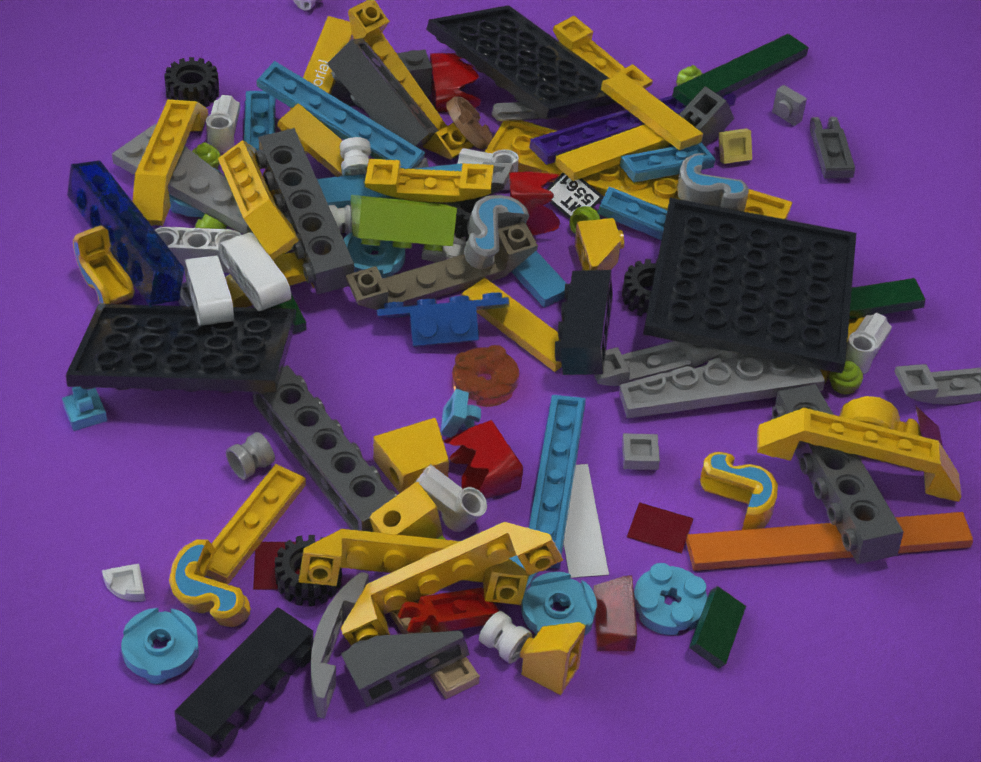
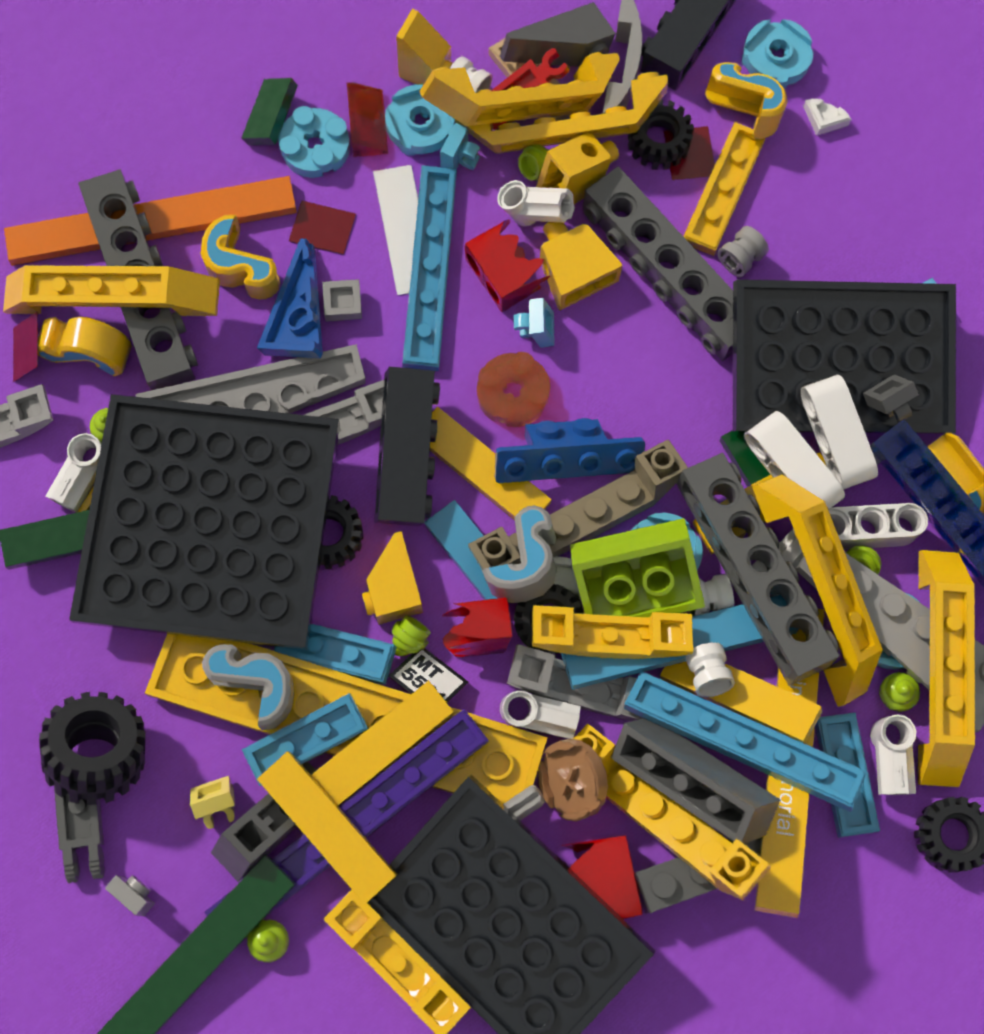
camera: 175 degrees right, 25 degrees up
(155, 306) = (892, 397): none -> dark grey tile
(685, 437) = (295, 317): none -> blue wing
(826, 142) = (86, 720): none -> black tyre

